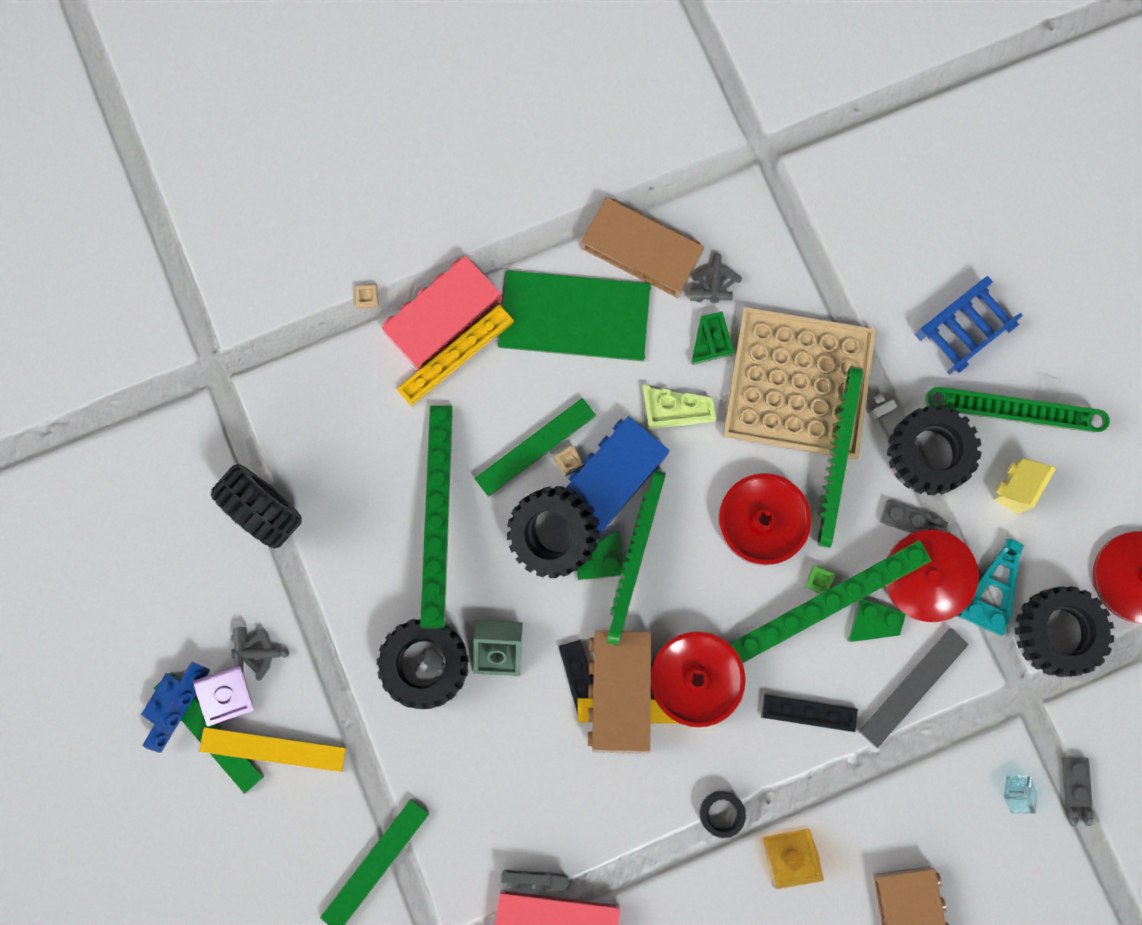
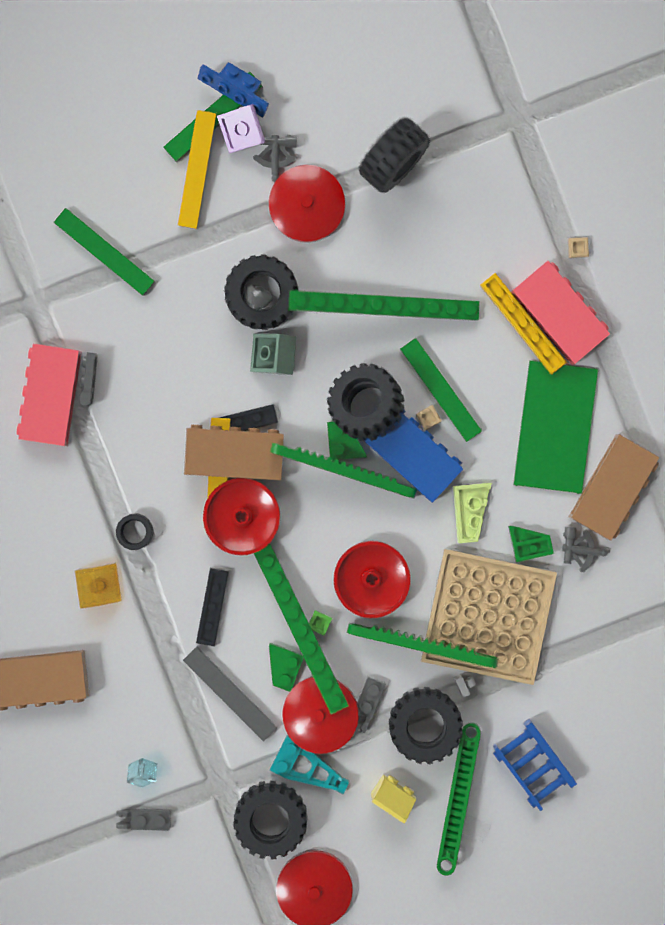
camera: 95 degrees right, 10 degrees up
(315, 613) = (307, 203): none -> red dish

